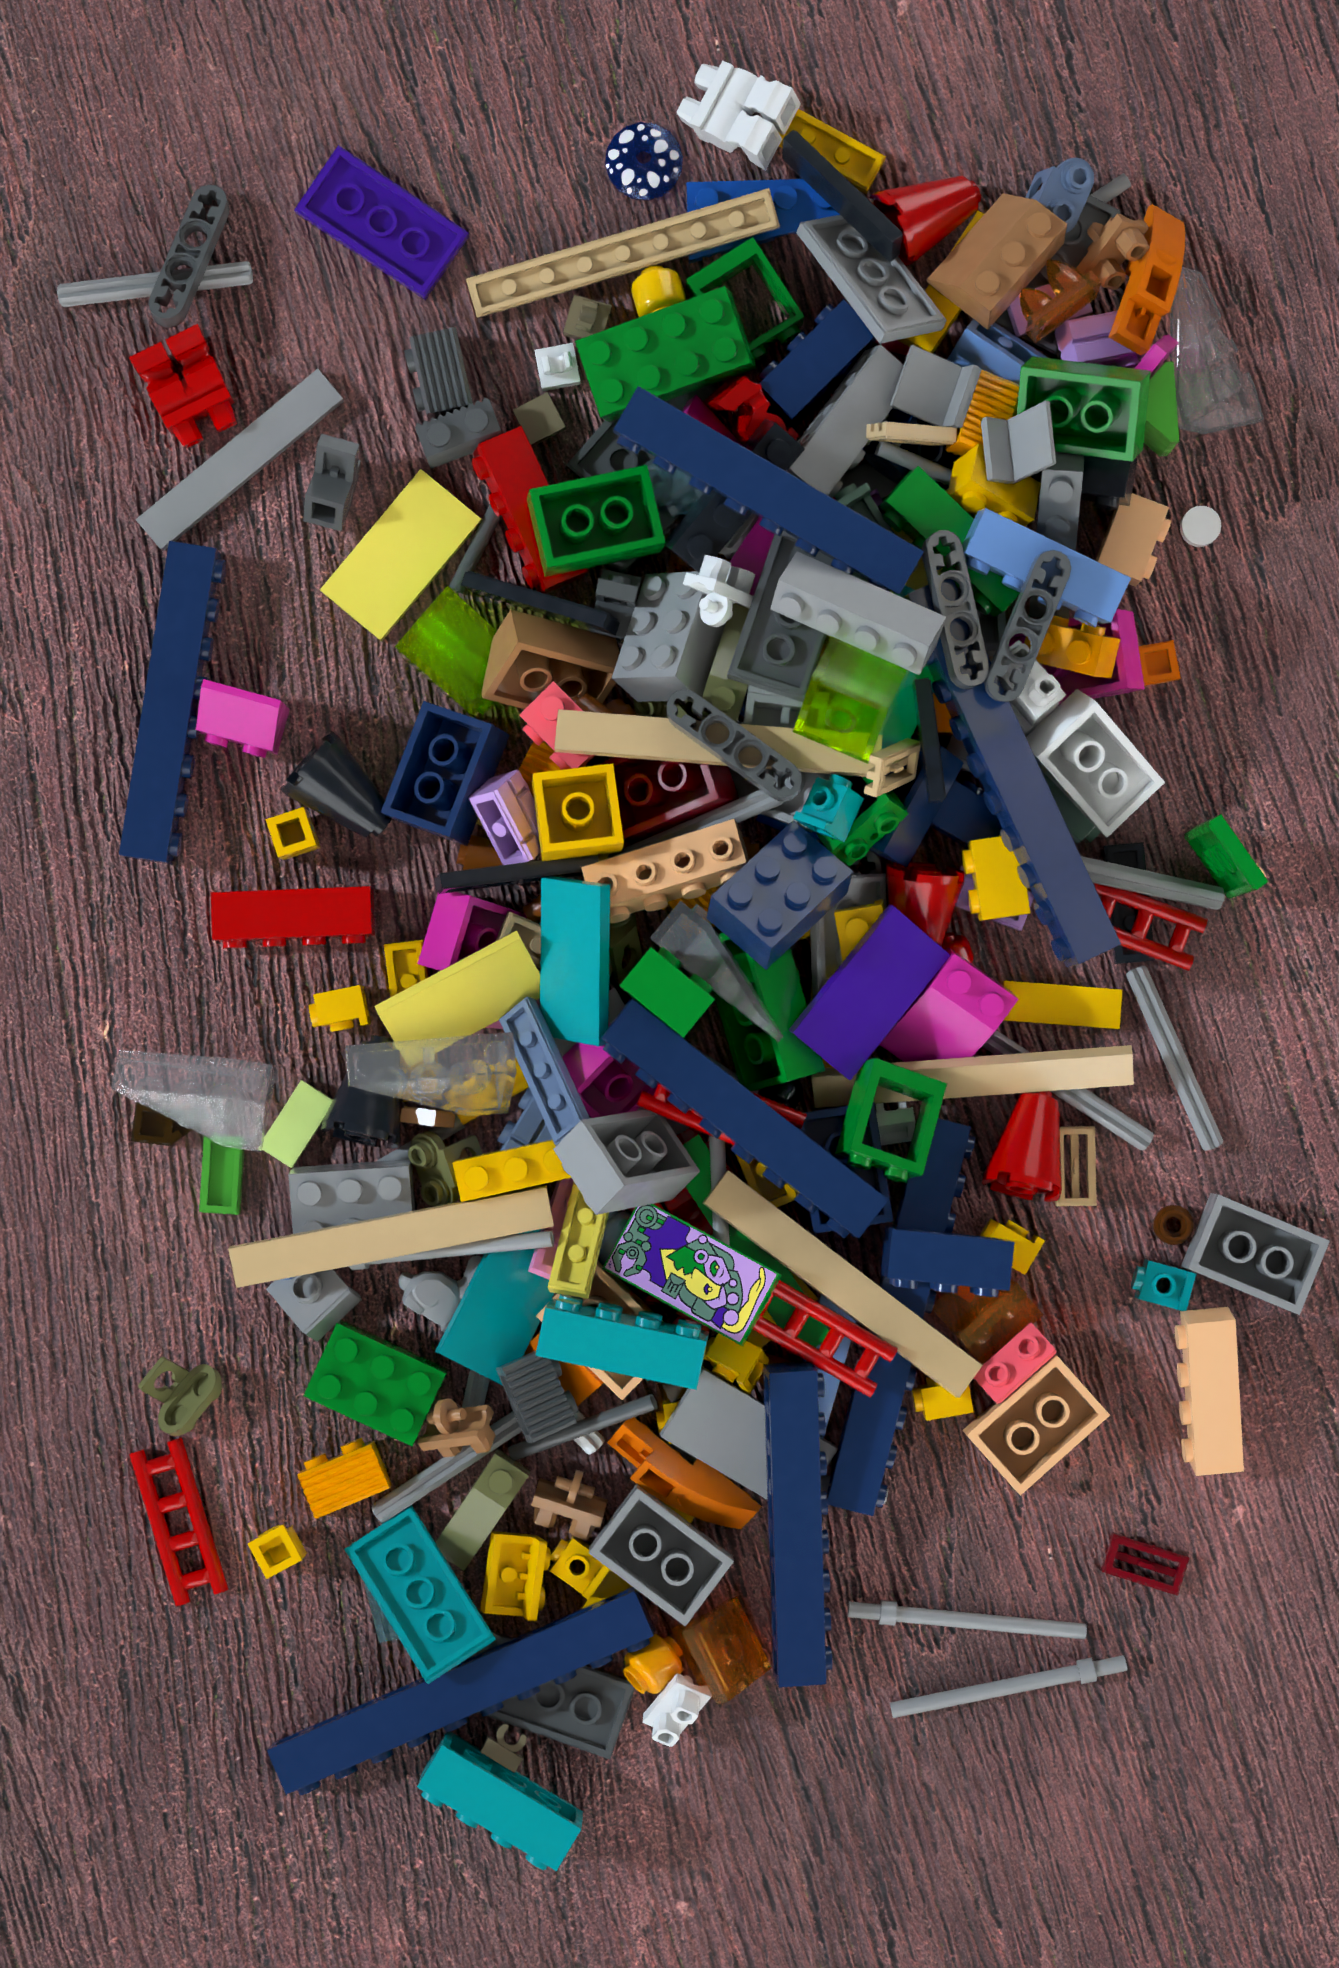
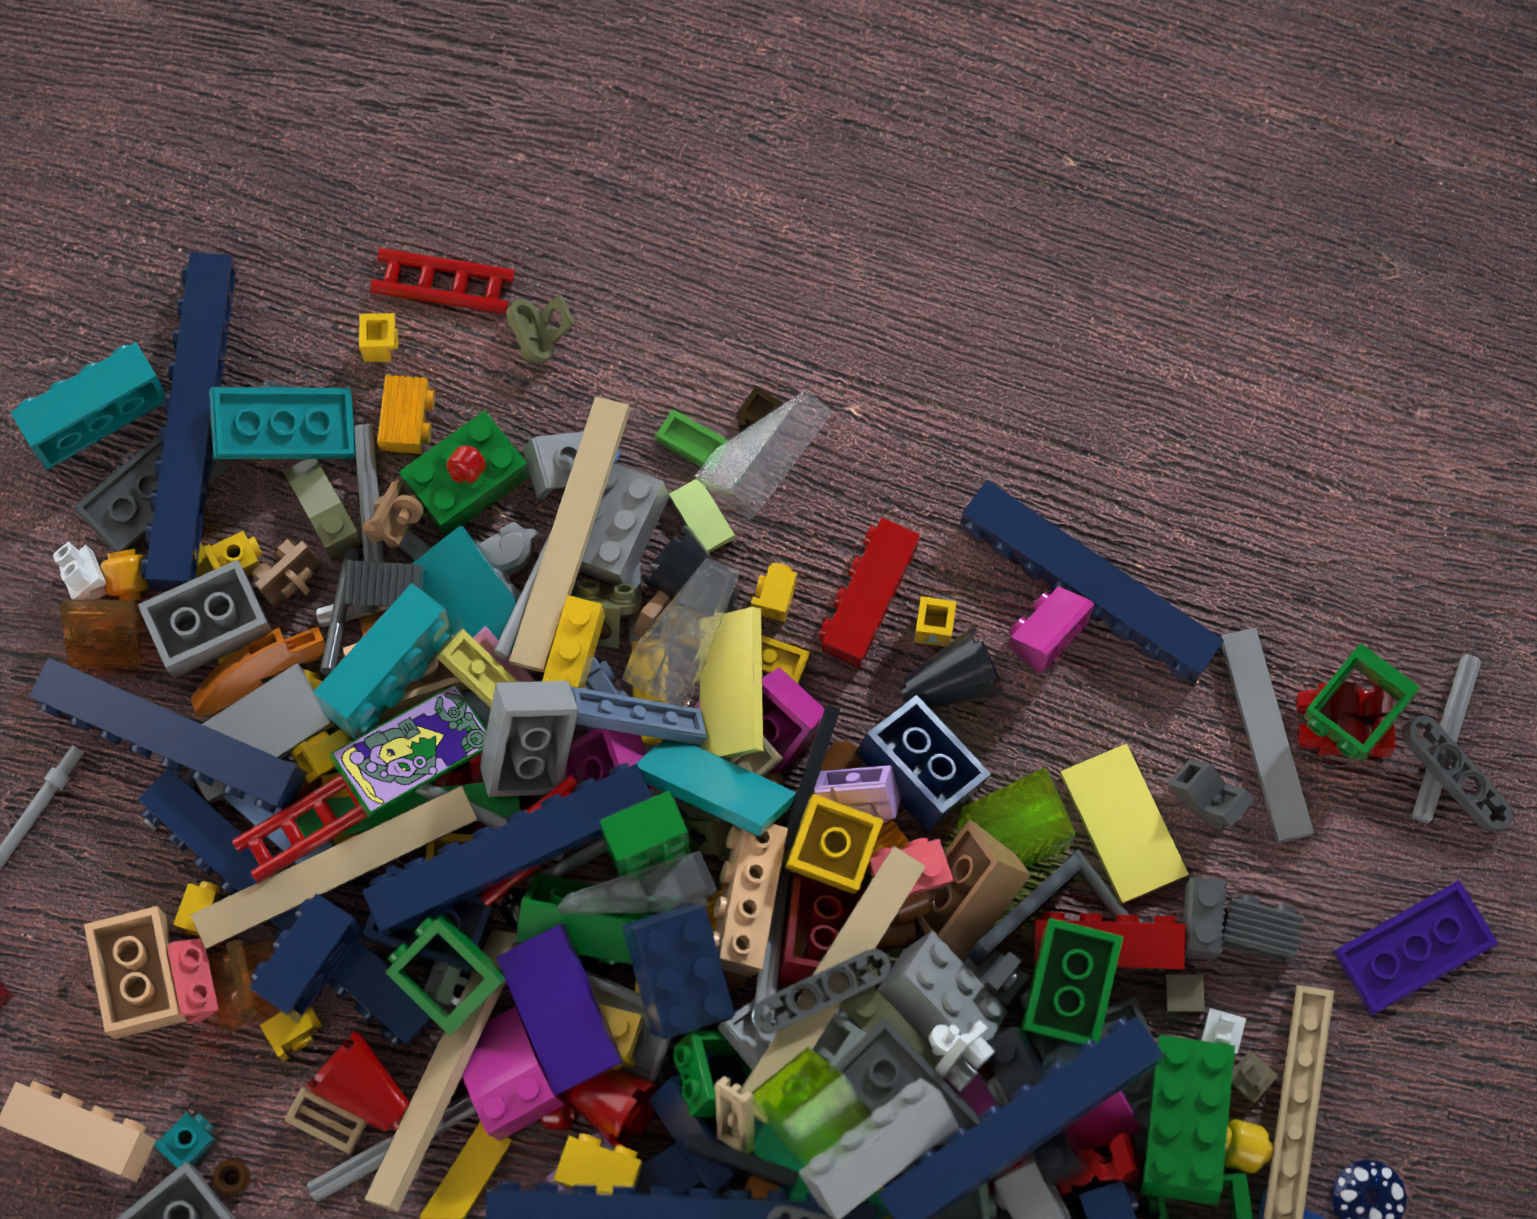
camera: 120 degrees right, 15 degrees down
(131, 365) = (1379, 673): none -> green window
(372, 1381) = (465, 464): none -> red piece
(501, 1751) = (125, 428): dark tan tile -> none
(515, 1575) = (256, 504): yellow bracket -> none
(830, 807) = (728, 1048): teal brick -> none

